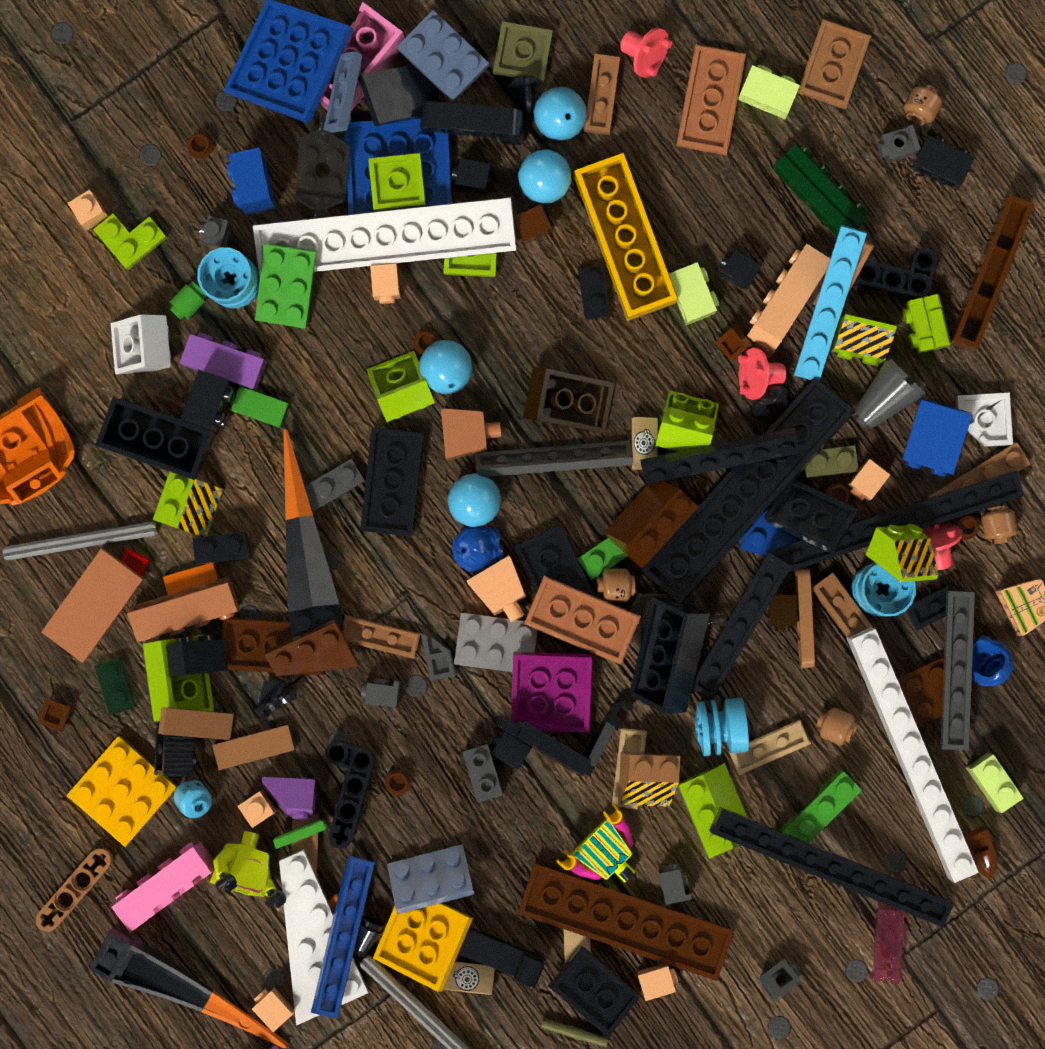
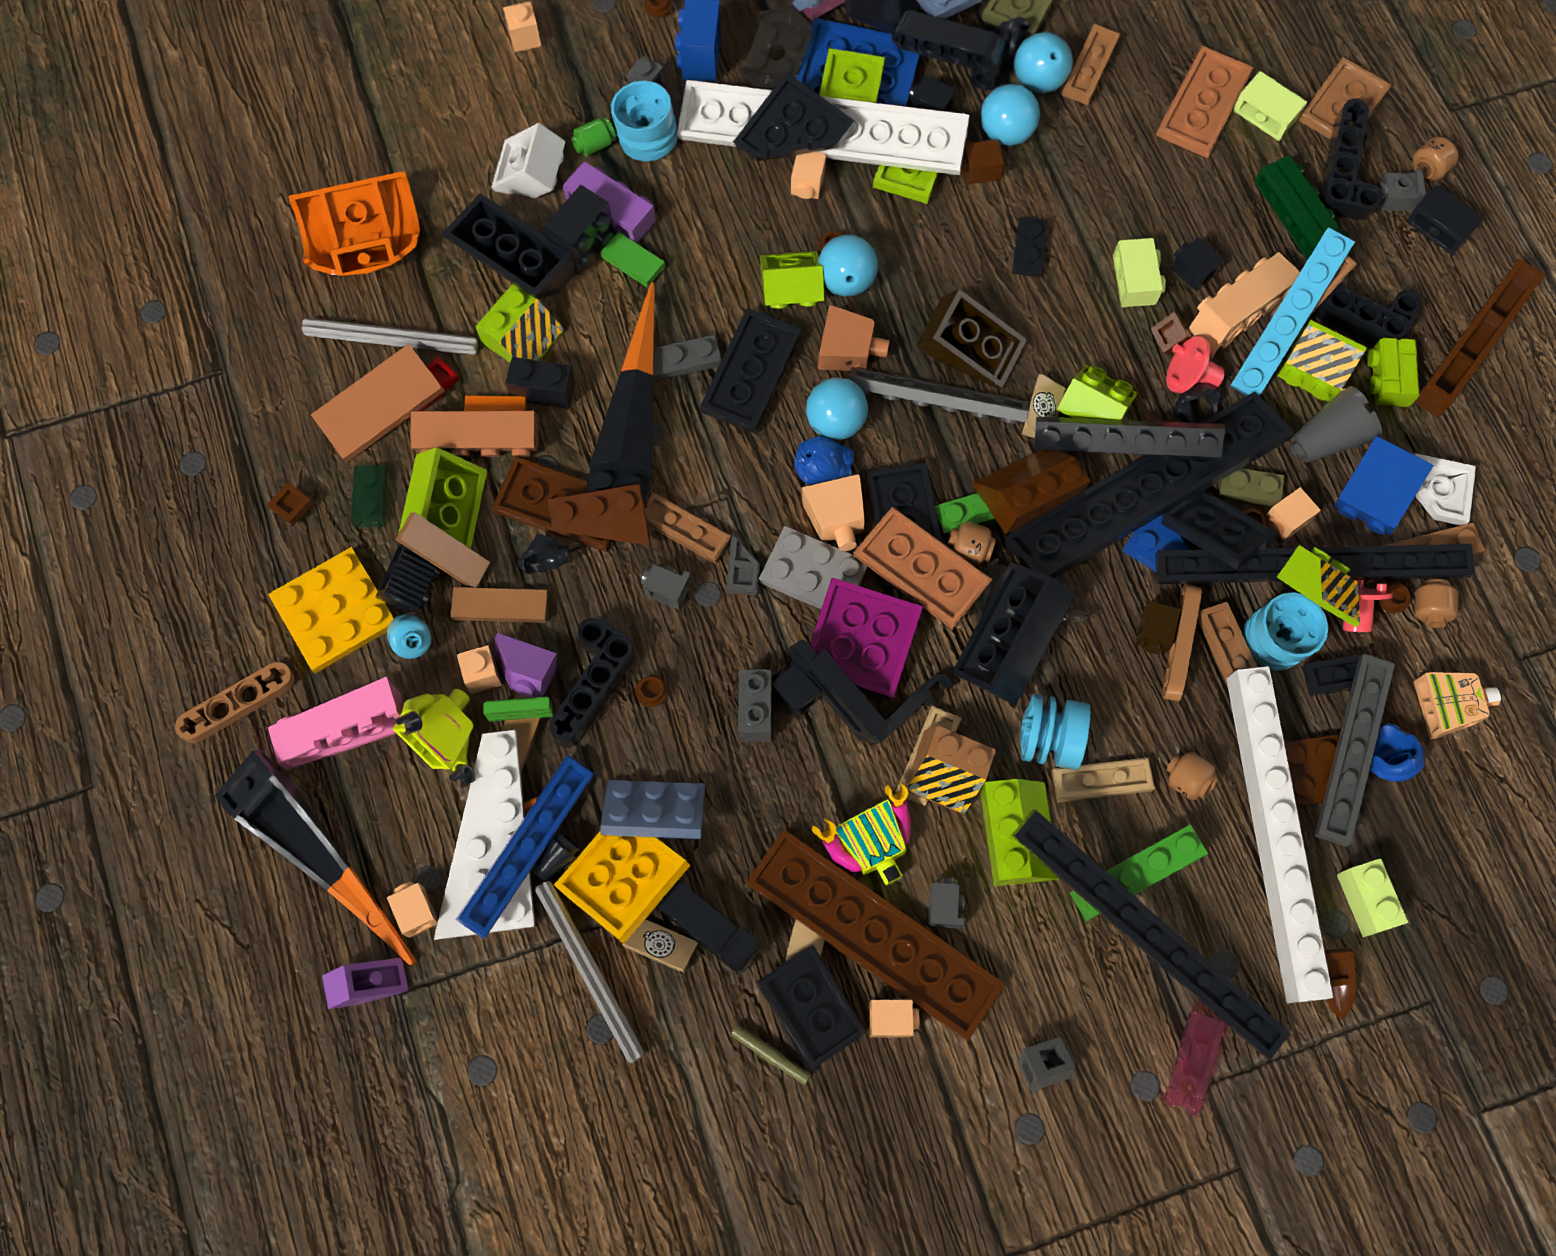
camera: 10 degrees right, 15 degrees down
(126, 245) = (555, 75): lime plate -> none
(196, 657) = (470, 480): black brick -> none
(285, 285) = (701, 147): bright green plate -> none
(359, 247) = (793, 123): none -> black plate
(625, 236) = (1080, 197): yellow brick -> none
(647, 50) = (1151, 32): coral piece -> none
(741, 625) = (1107, 623): black plate -> none
(850, 130) = (1348, 158): none -> black beam

